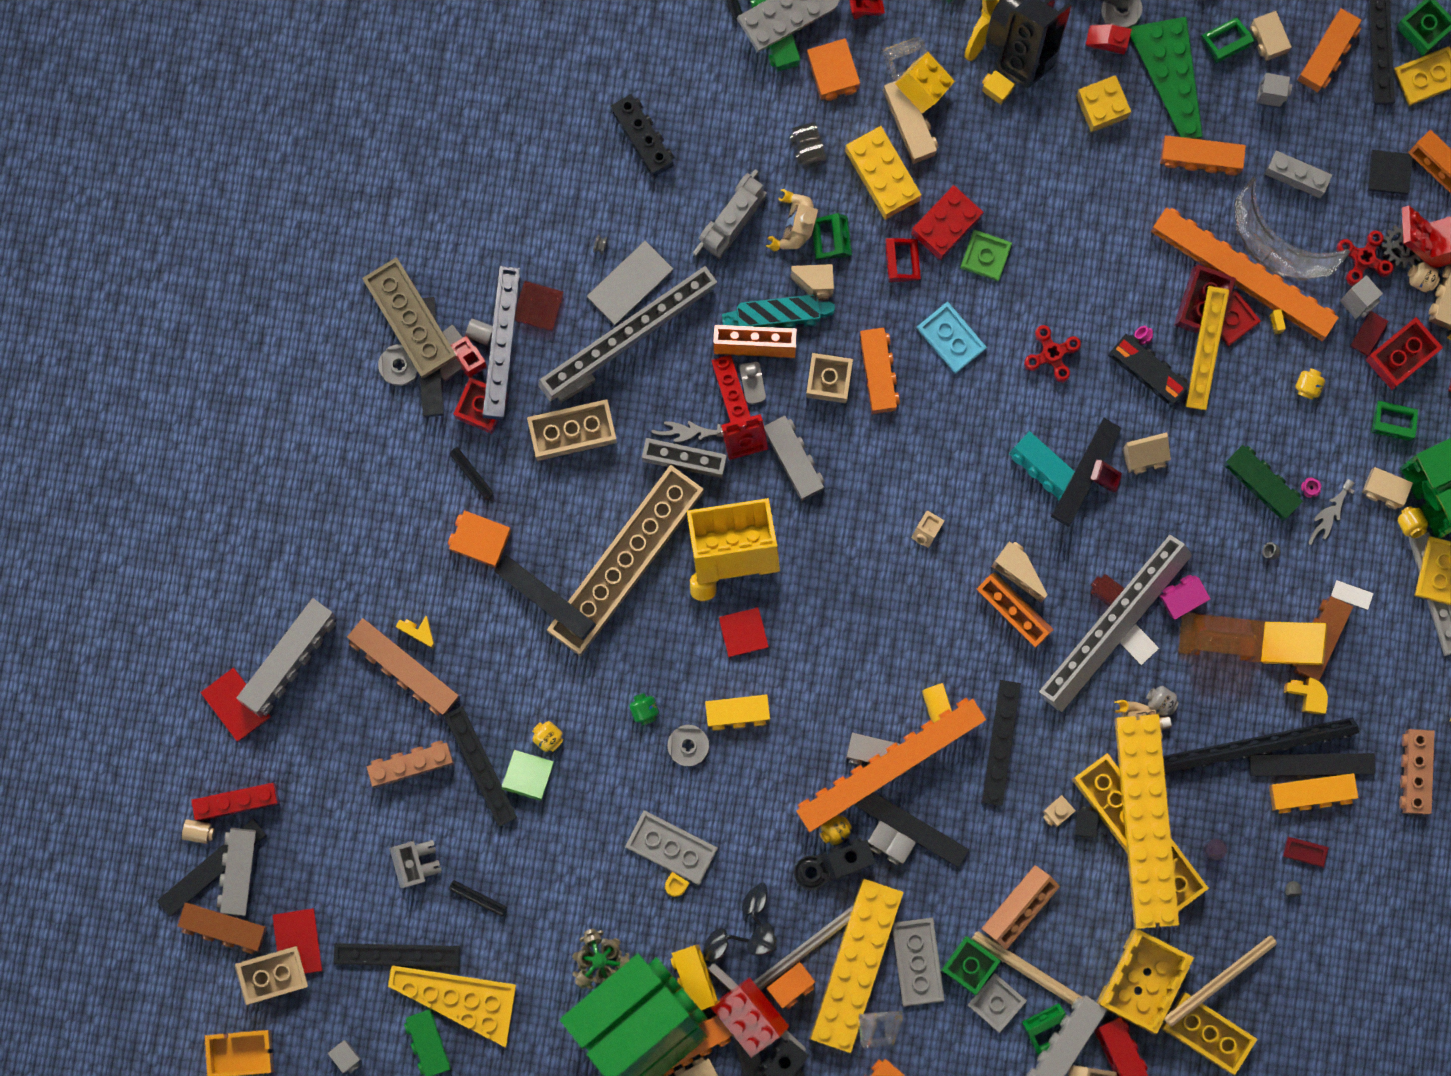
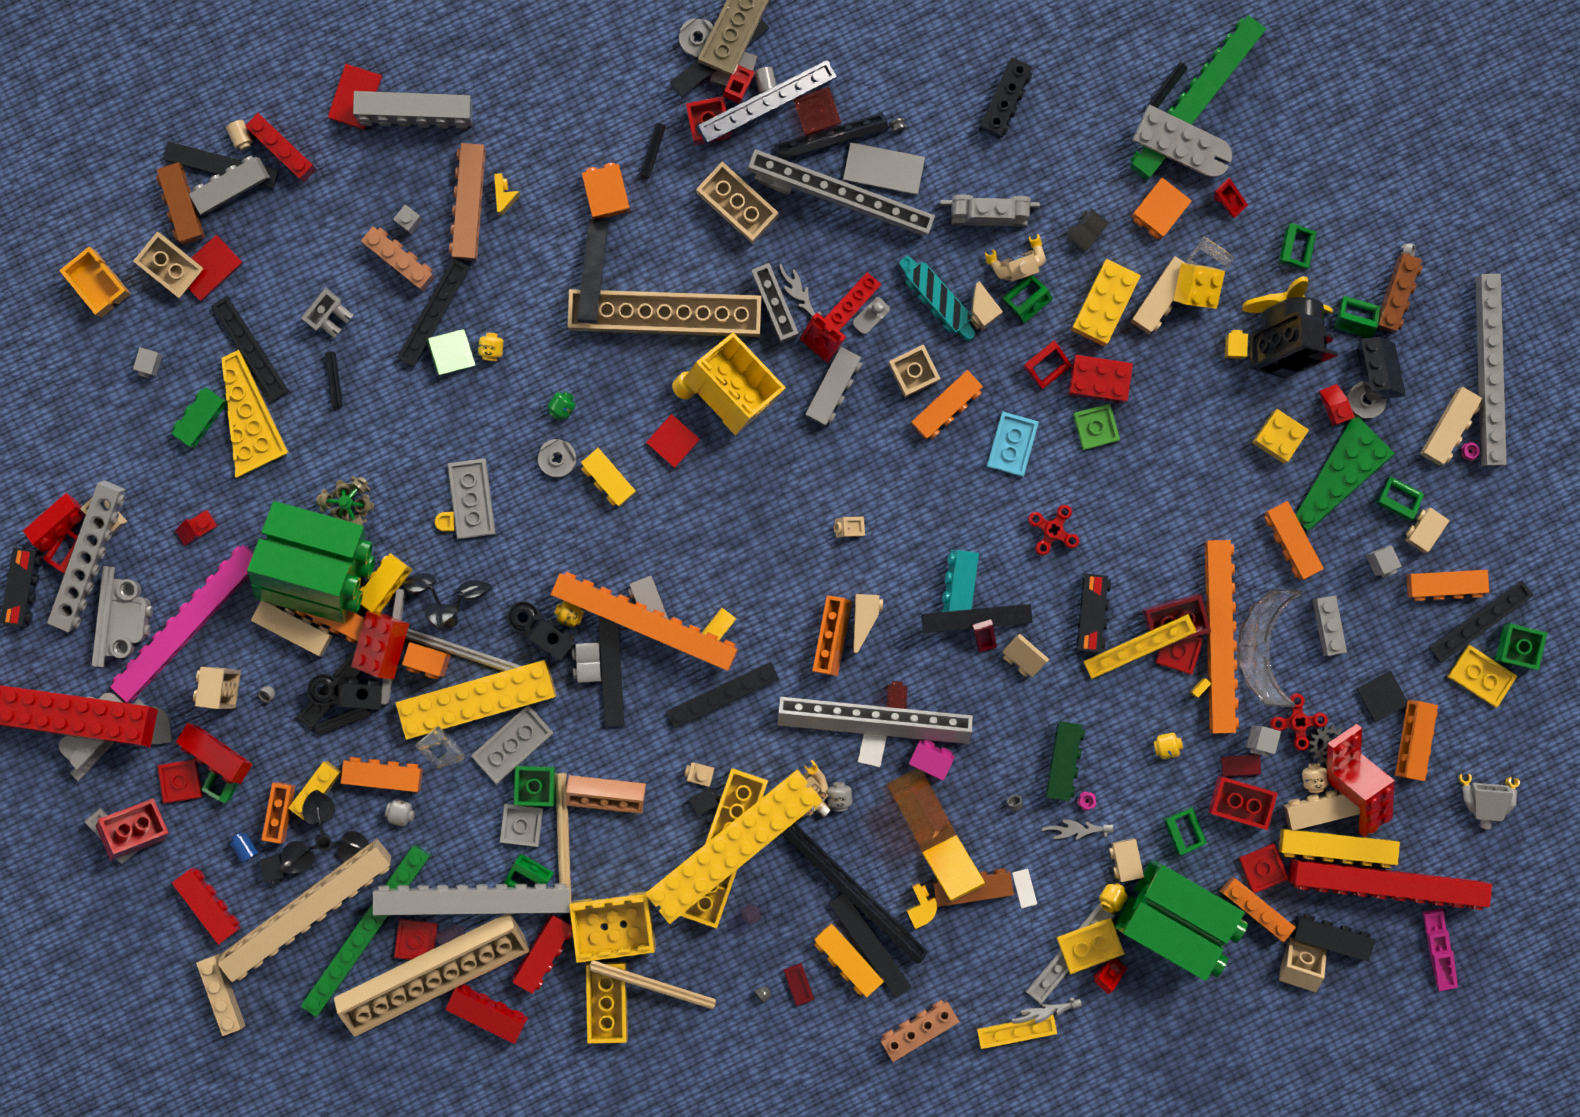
camera: 55 degrees right, 5 degrees up
(381, 731) = (408, 219): none -> light grey brick
(569, 308) = (831, 136): none -> black plate
(754, 341) = (903, 294): orange brick -> none
(1144, 335) = (1117, 591): dark pink plate -> none

